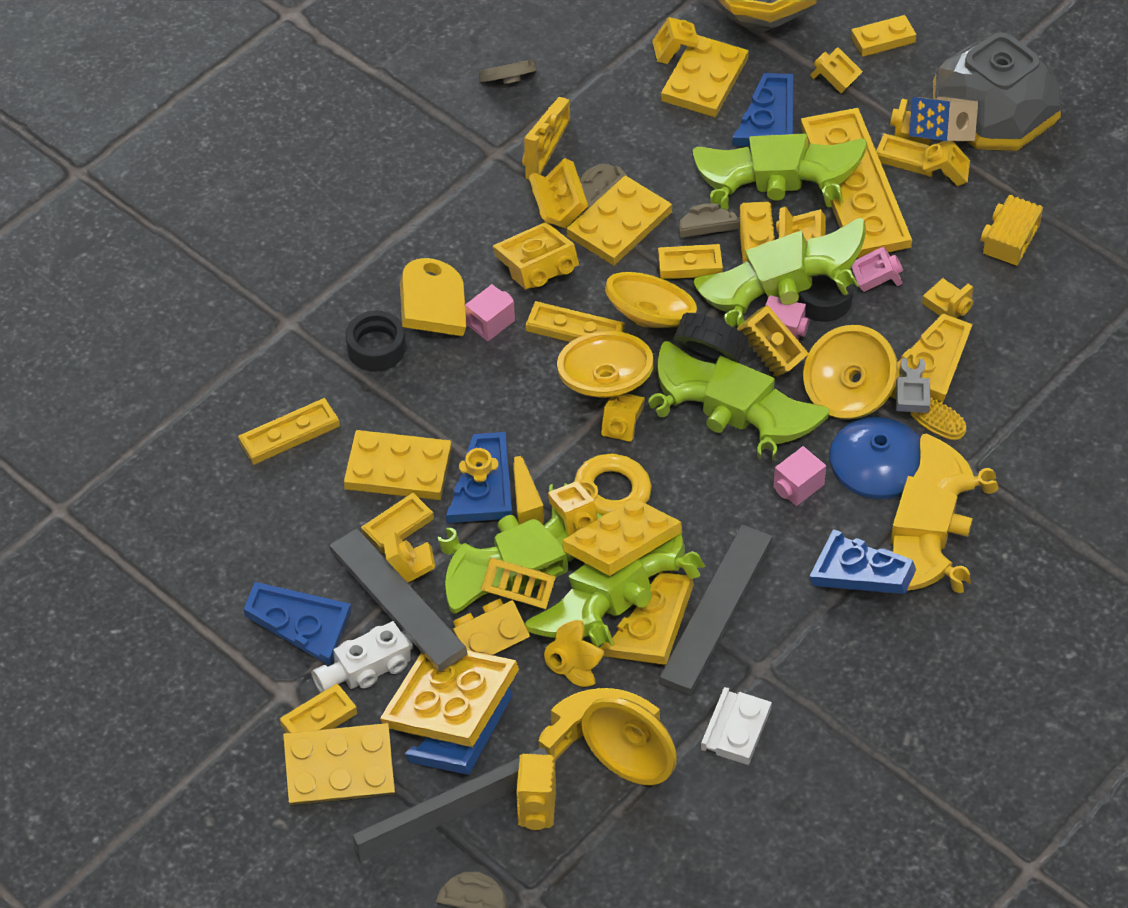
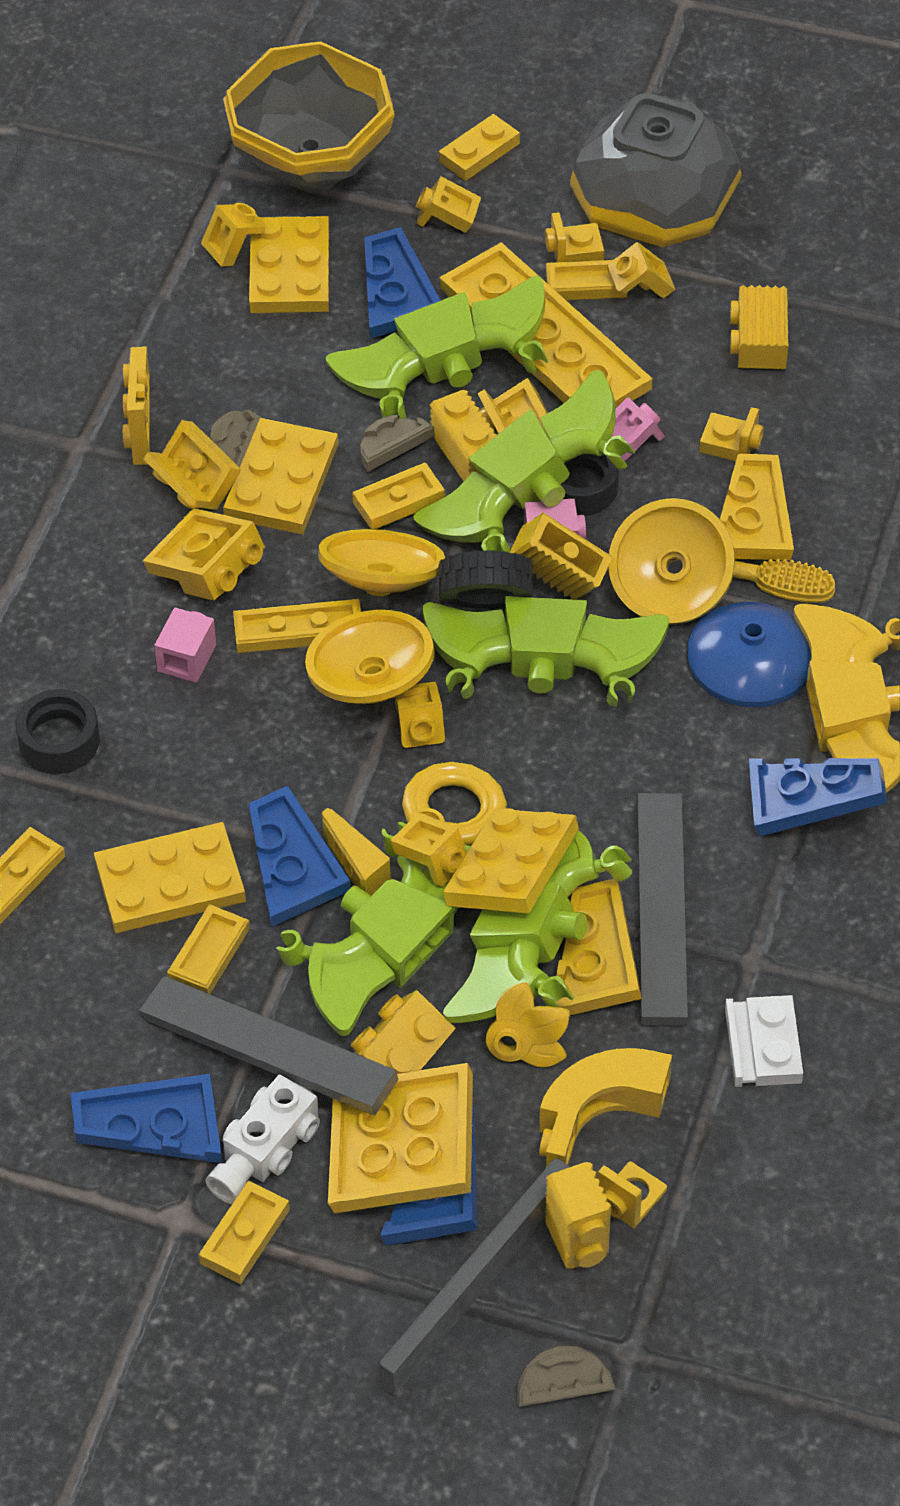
camera: 25 degrees left, 0 degrees up
(339, 764) = (305, 1282): yellow plate -> none
(408, 561) = (255, 990): yellow bracket -> none
(431, 300) = (106, 654): yellow tile -> none
(478, 457) = (276, 828): yellow plate -> none
(508, 72) = (44, 339): dark tan plate -> none
(544, 590) = (447, 961): yellow slope -> none
(574, 792) = (625, 1196): none -> yellow bracket
(629, 740) = (663, 1107): yellow dish -> none
(799, 476) = (675, 709): bright pink brick -> none
(912, 389) = (756, 558): light grey plate -> none
(943, 118) = (616, 220): piece -> none

